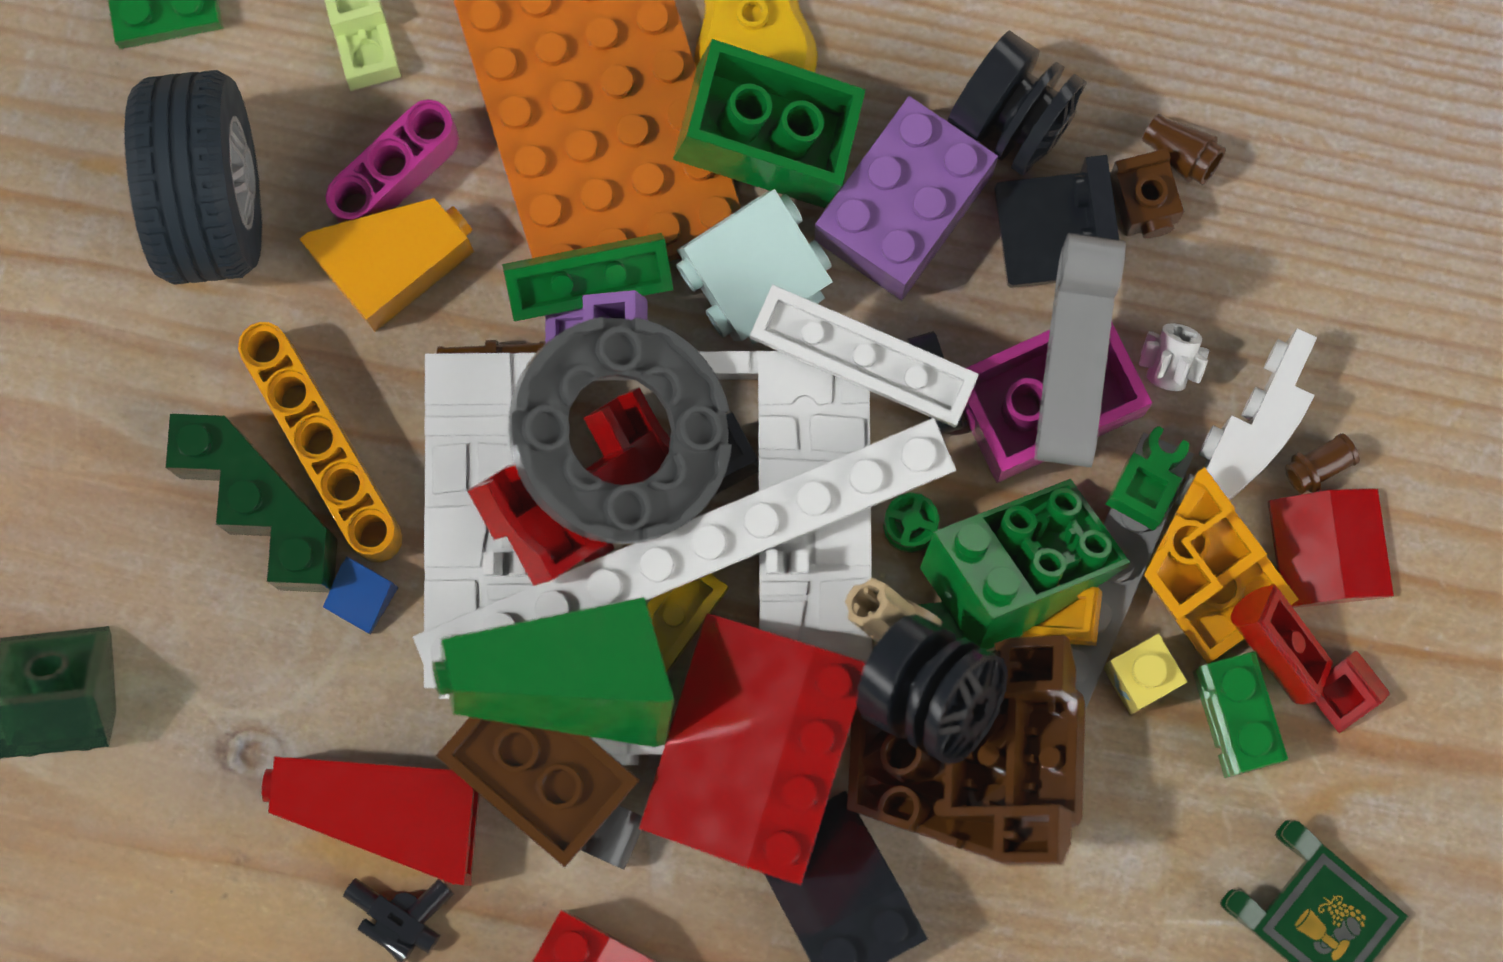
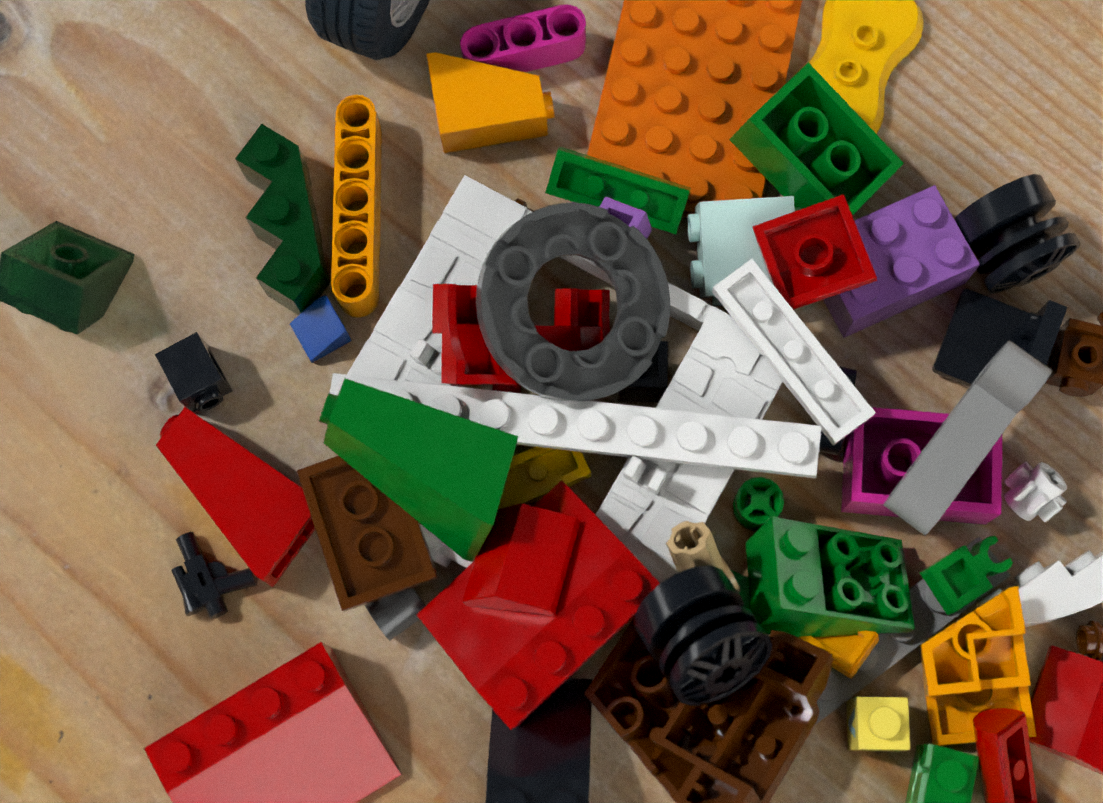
camera: 30 degrees right, 5 degrees down
(258, 716) = (194, 373): none -> black brick
(718, 716) = (523, 561): none -> red slope
(829, 240) = (814, 252): none -> red slope

